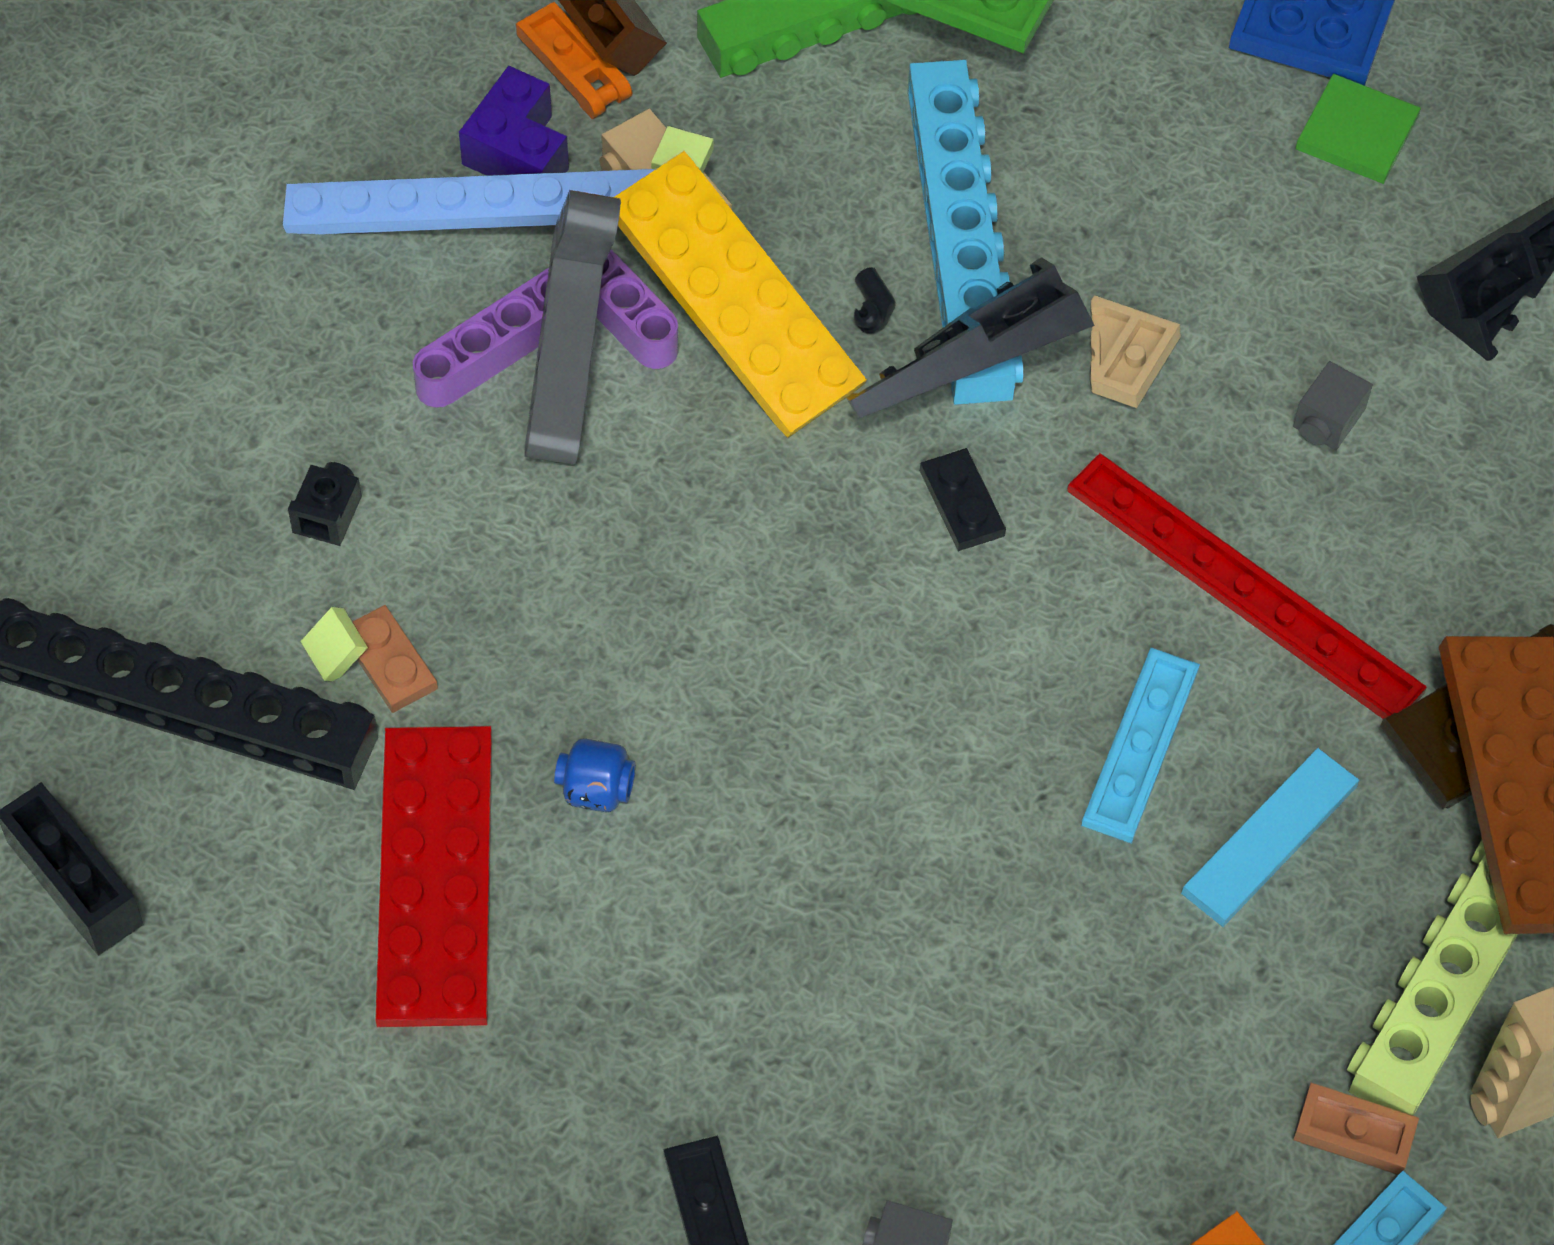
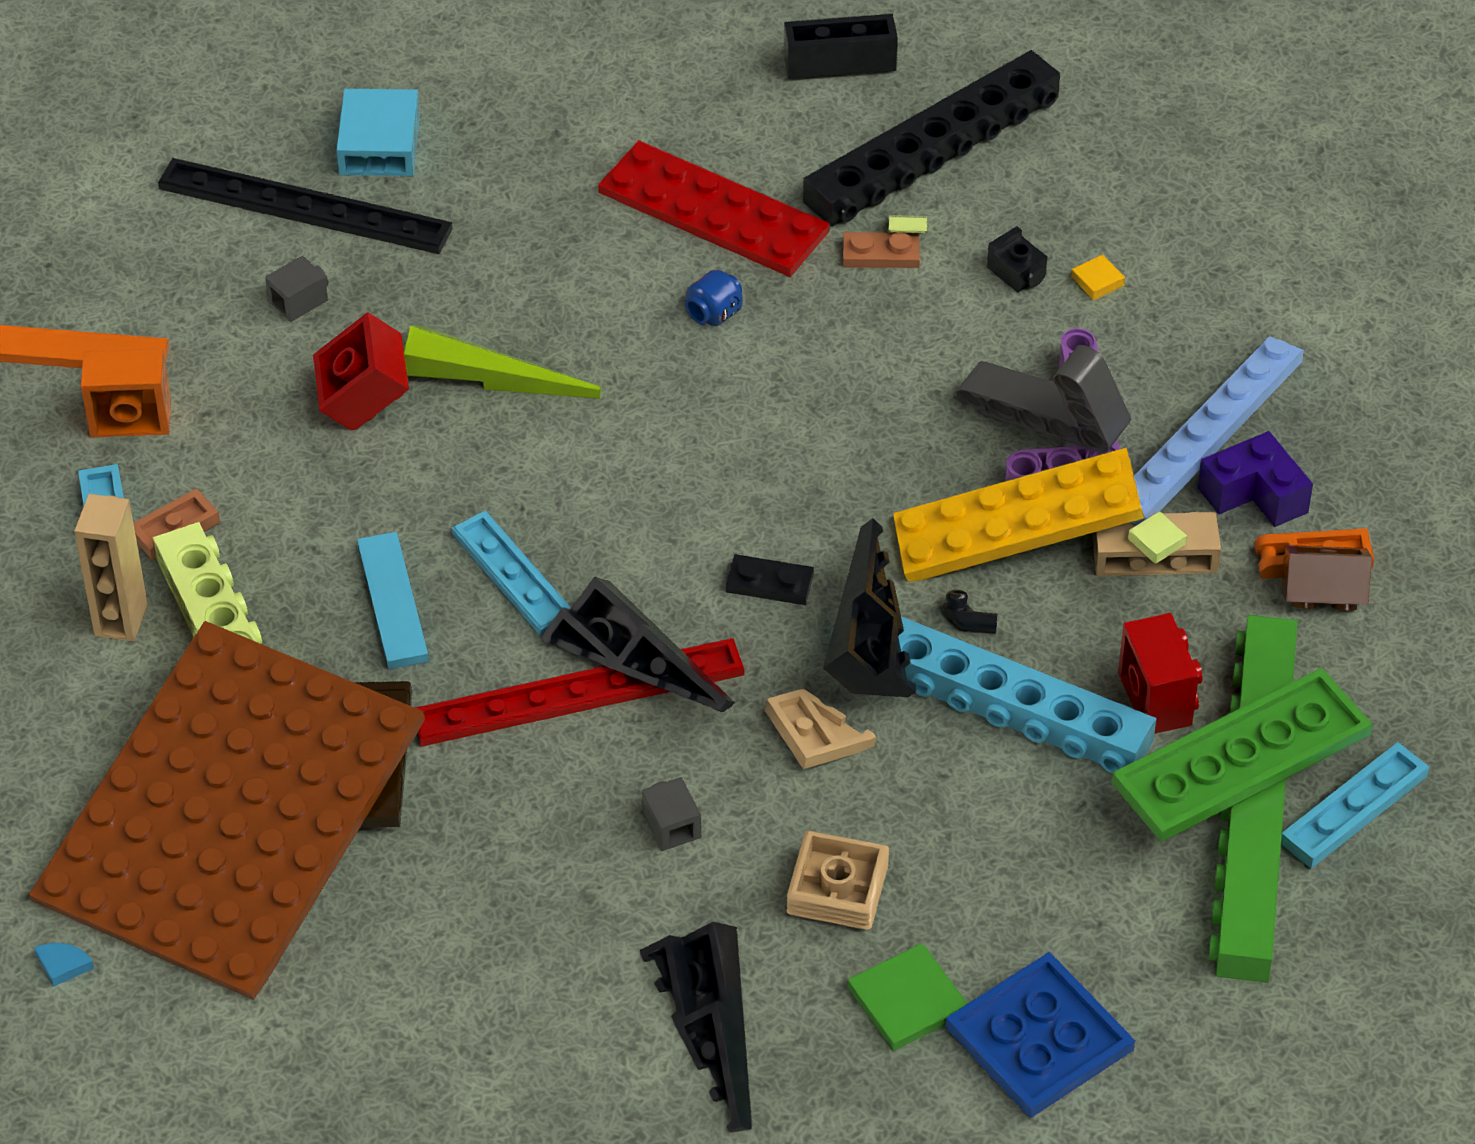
camera: 125 degrees right, 10 degrees down
(289, 426) = (1098, 277): none -> yellow tile
(854, 83) = (1159, 671): none -> red brick
(879, 980) = (448, 357): none -> lime wedge
(1013, 1046) = (360, 372): none -> red brick
(1156, 578) = (619, 636): none -> black wedge
(1292, 230) = (837, 880): none -> tan brick

